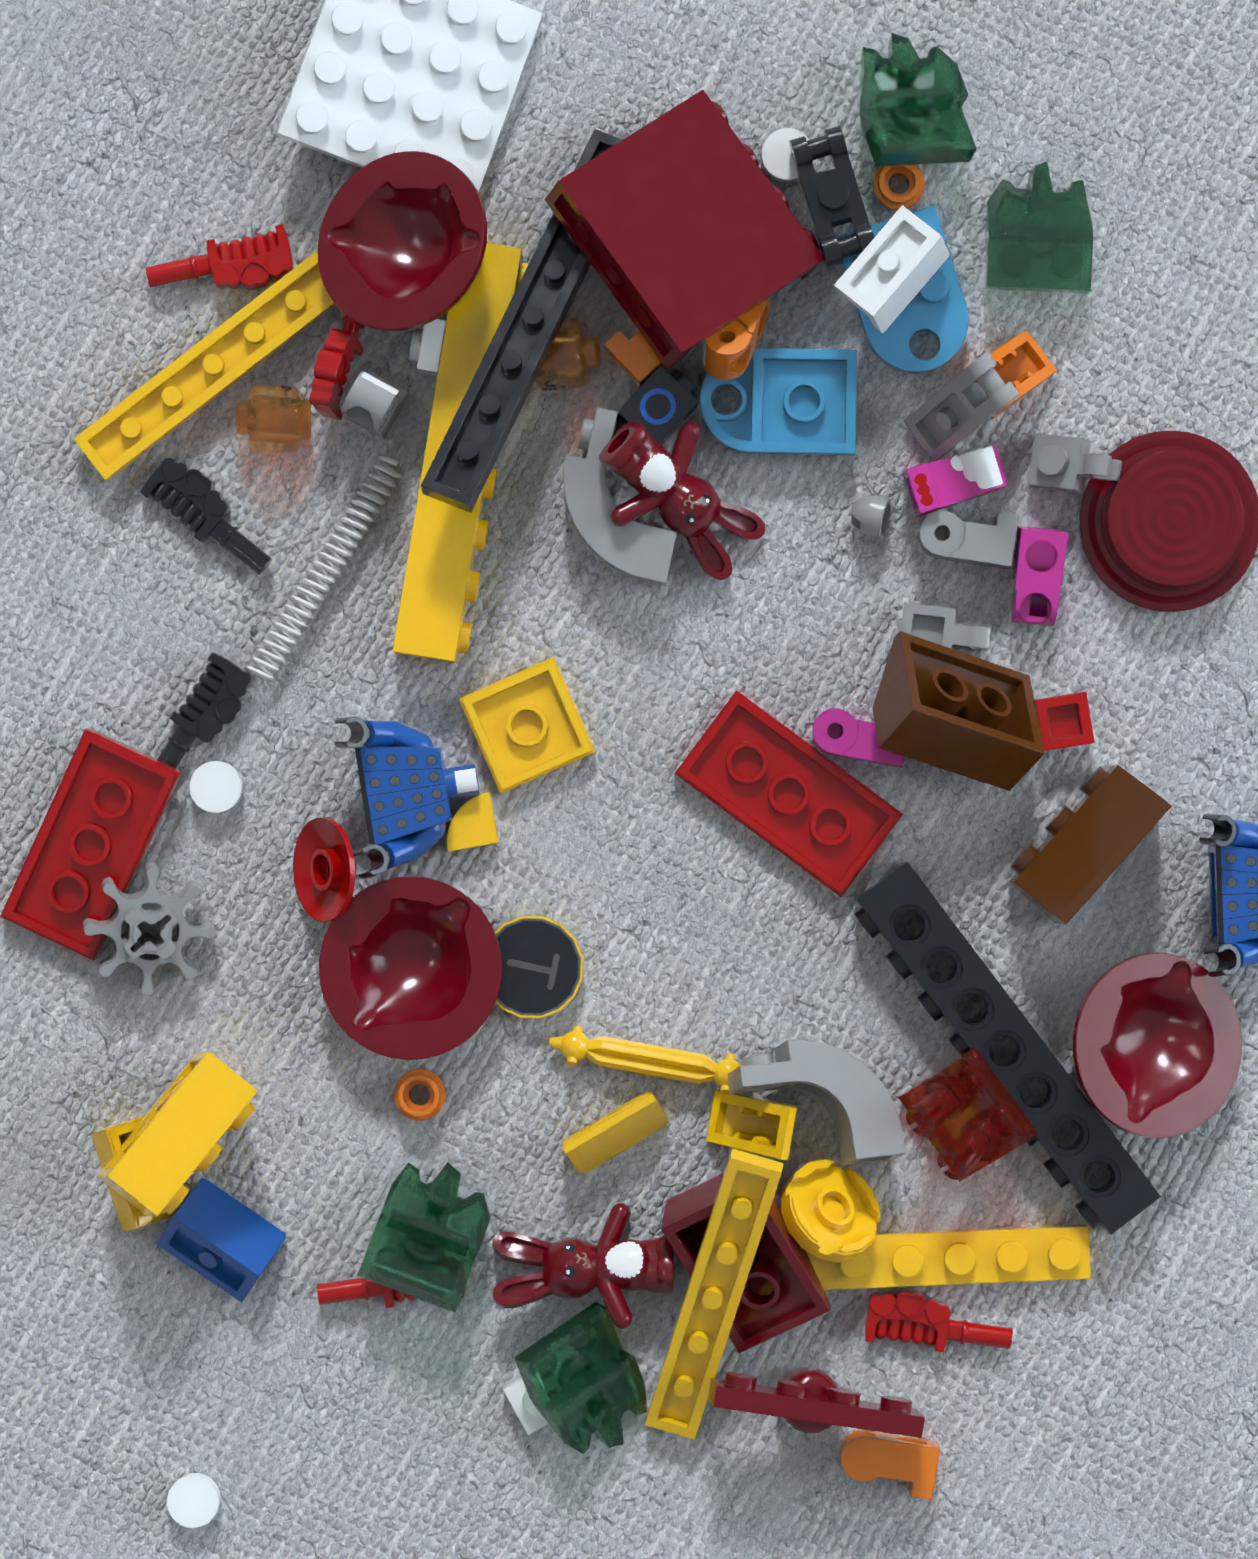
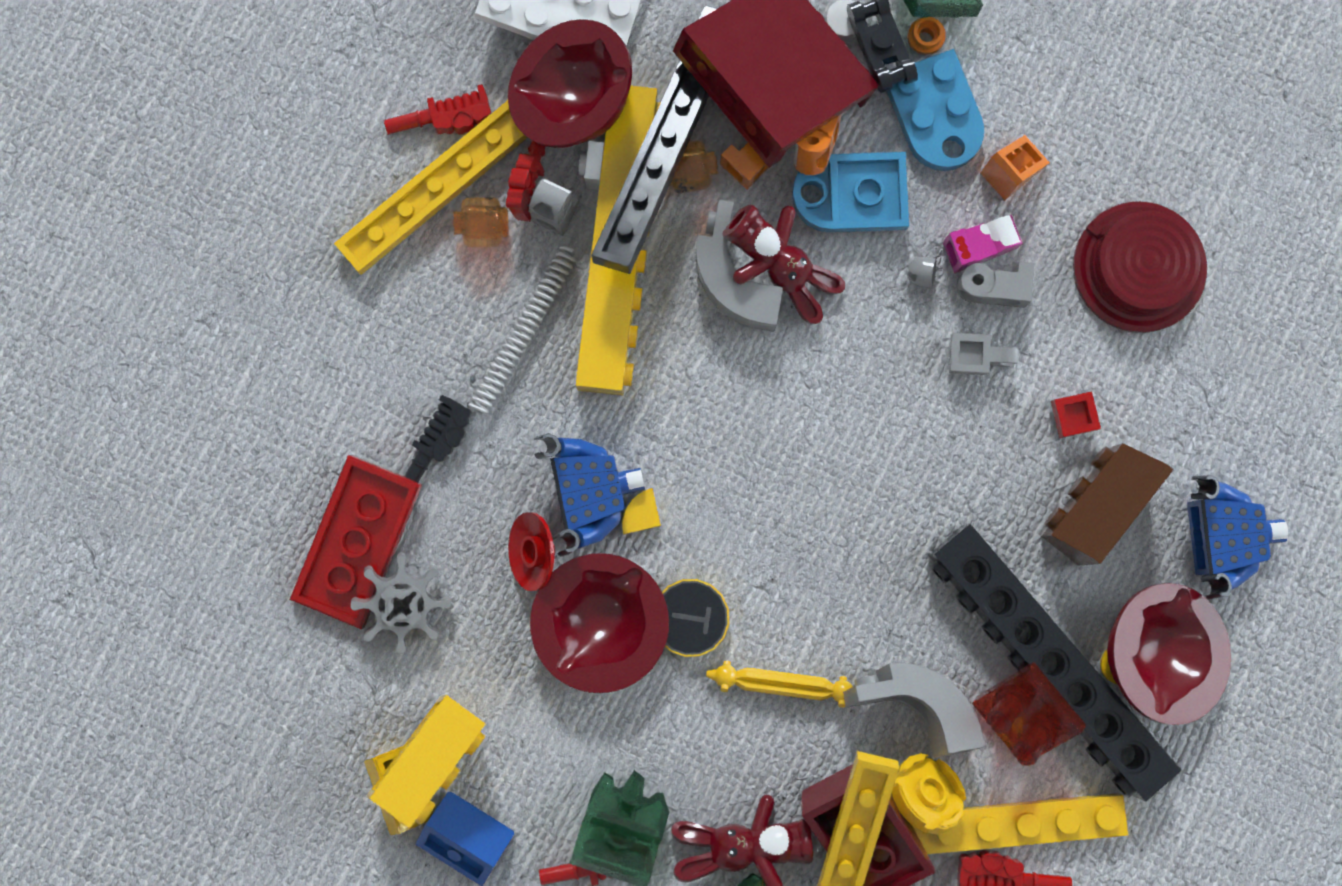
camera: 10 degrees left, 5 degrees down
(200, 505) = (428, 287): black piece -> none
(216, 787) = (448, 494): white tile -> none
(407, 1106) = (599, 725): orange plate -> none
(527, 725) = (677, 438): yellow tile -> none
(615, 1132) = (759, 740): yellow slope -> none
(661, 403) = (767, 193): black brick -> none
(752, 1124) = (865, 729): yellow slope -> none
(788, 793) = (874, 479): red tile -> none
(842, 735) = (913, 433): dark pink leg -> none
(893, 268) = (931, 87): white panel -> none
(957, 712) = (1000, 411): reddish brown slope -> none
(960, 407) = (988, 184): light grey plate -> none
(1038, 575) = (1050, 308): dark pink leg -> none
(1039, 236) = (1031, 67): clear green plate -> none
(1066, 462) = (1063, 224): light grey plate -> none

